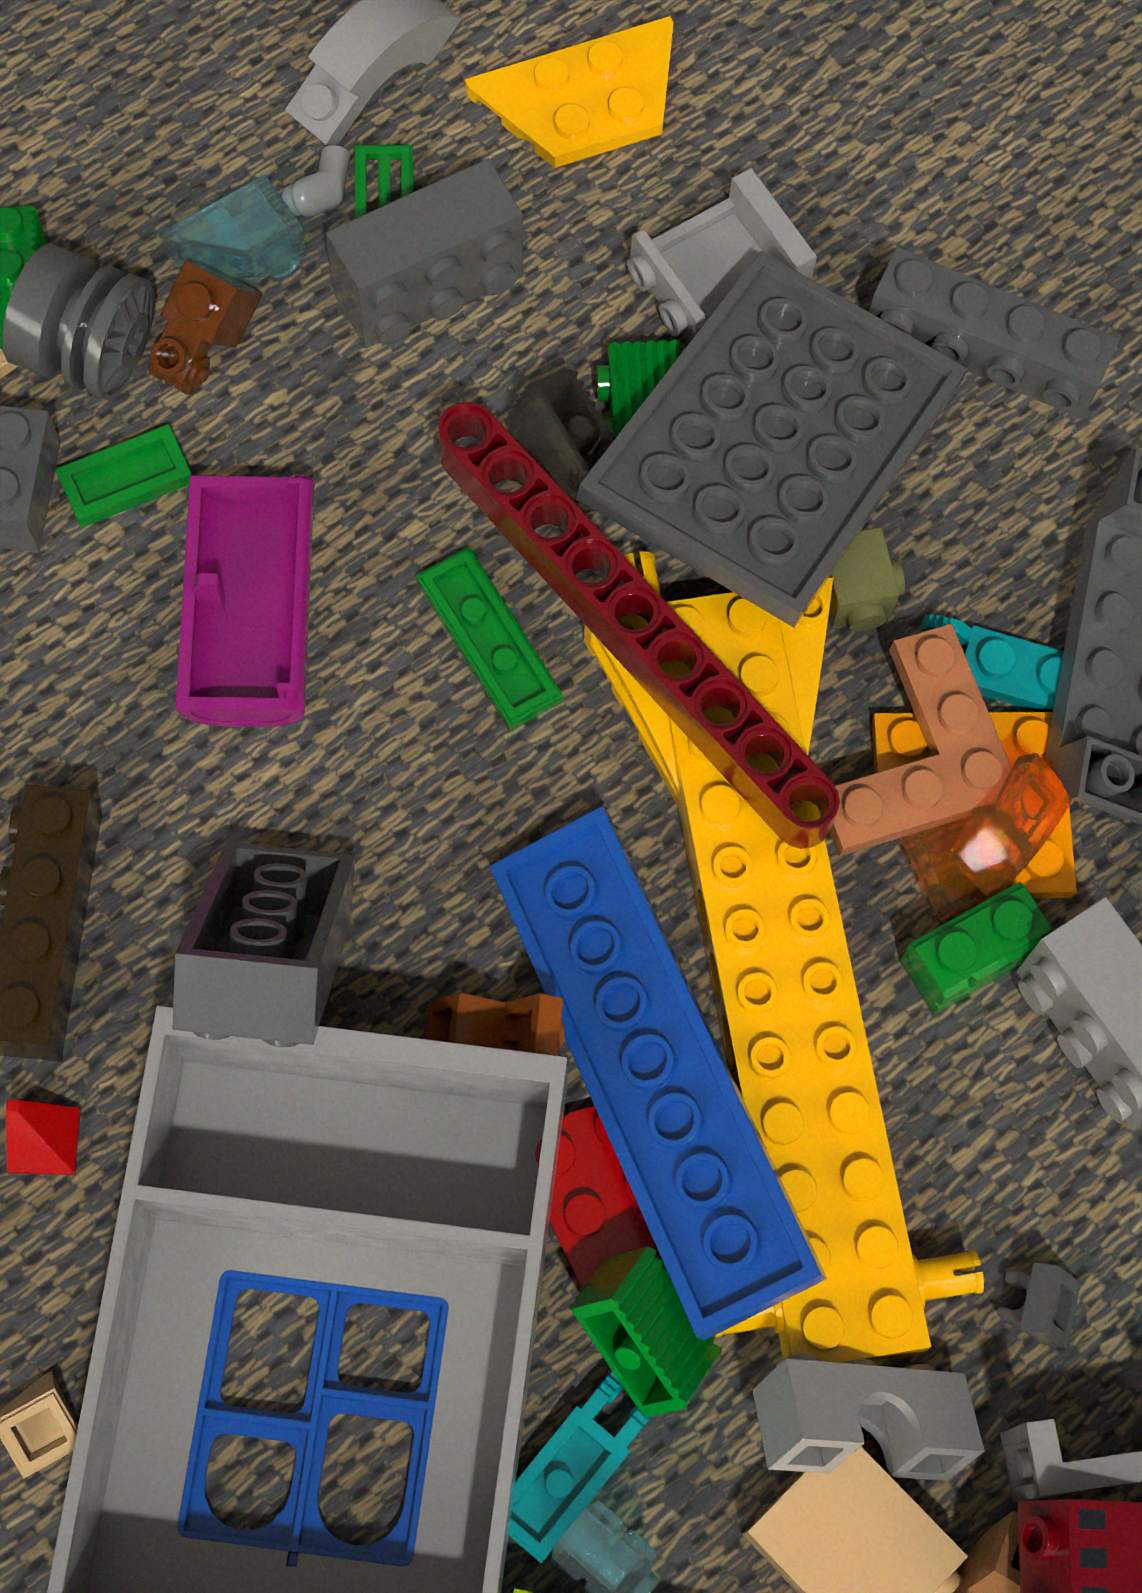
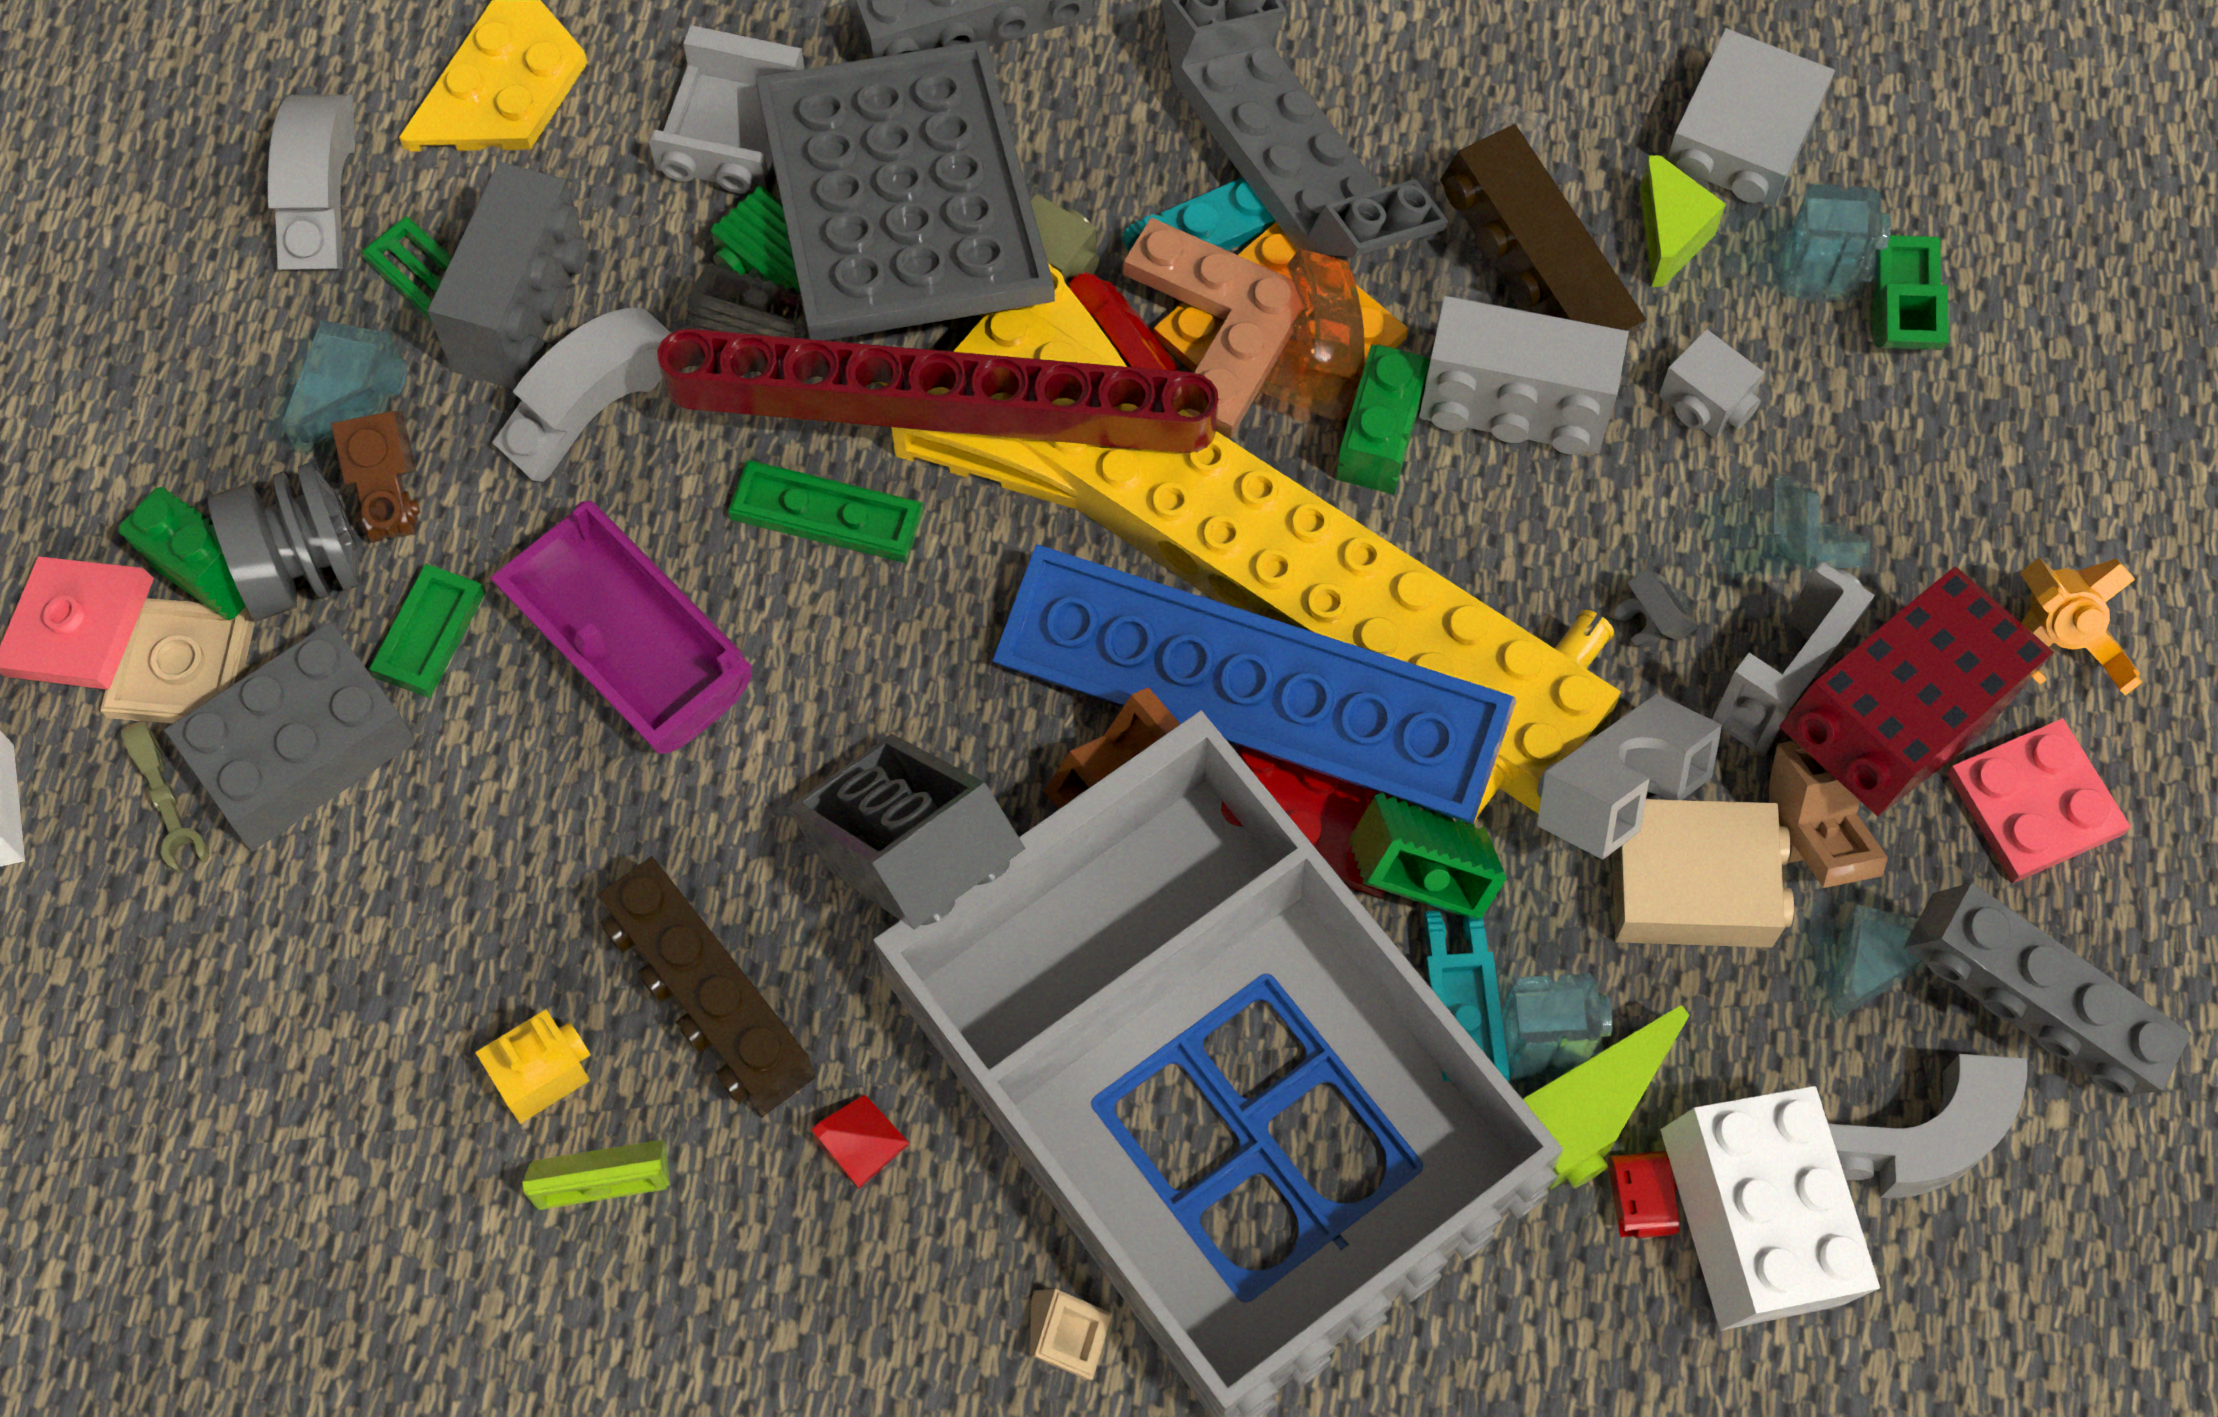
camera: 40 degrees left, 5 degrees down
(322, 189) = (368, 298): light grey arm -> none
(402, 380) = (576, 382): none -> light grey arch
(846, 703) = (1121, 323): none -> red hinge

